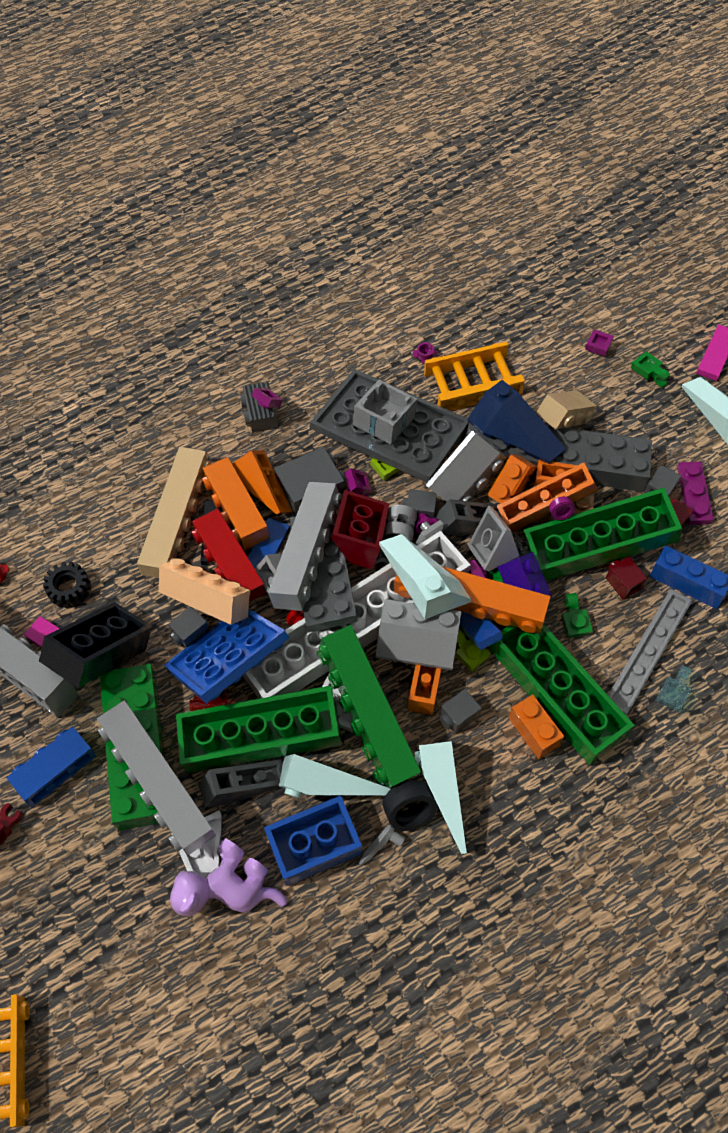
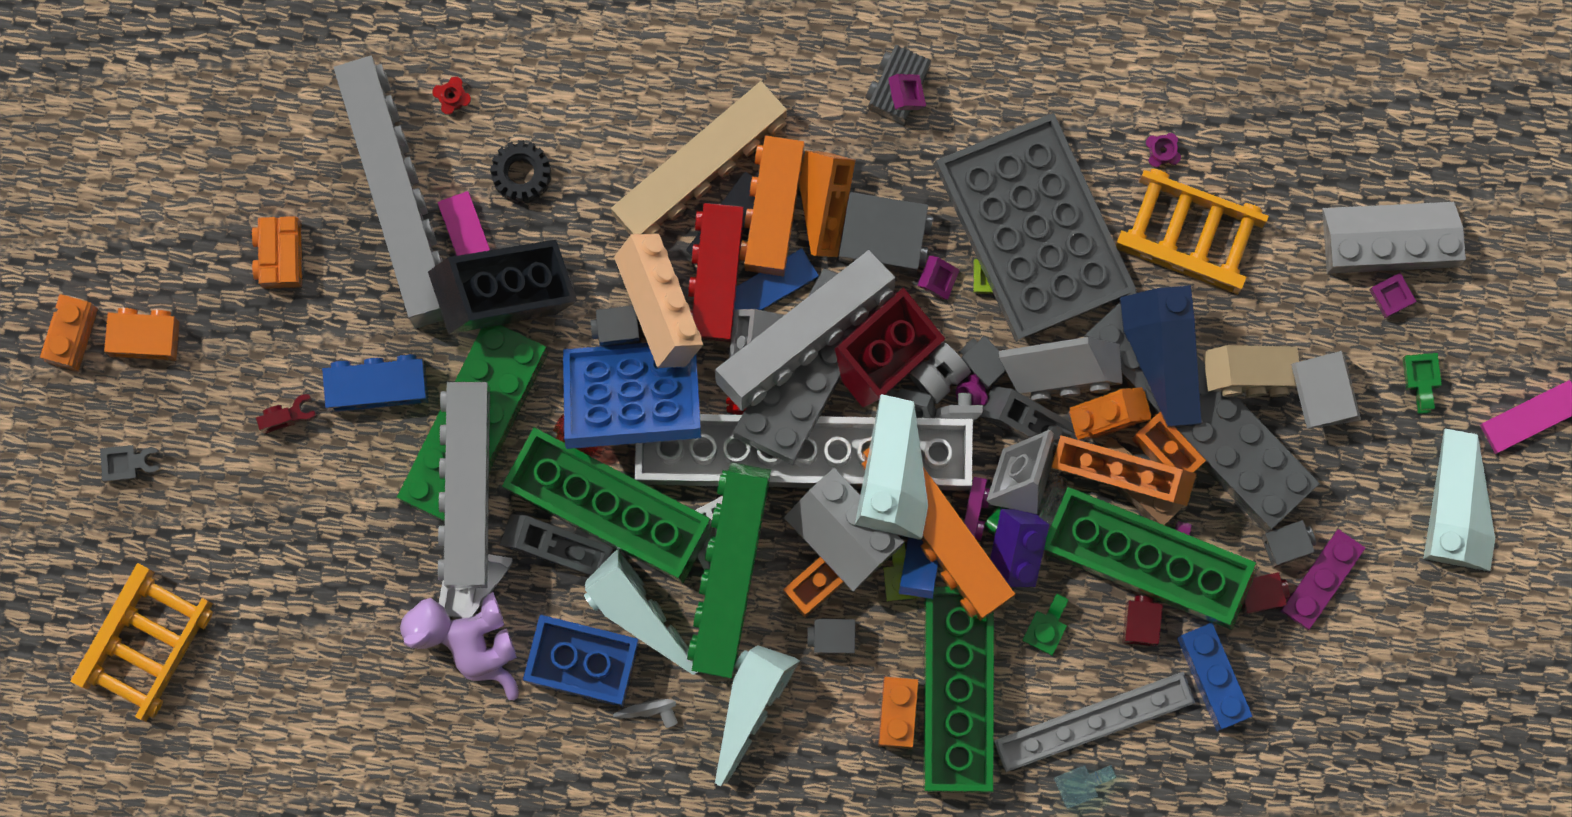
camera: 35 degrees right, 20 degrees up
(384, 411) = (1031, 214): light grey container -> none
(406, 793) = (700, 698): black tyre -> none
(561, 508) = (1122, 499): magenta tile -> none
(576, 319) = (1393, 237): none -> light grey slope
(613, 396) = (1326, 390): none -> light grey slope

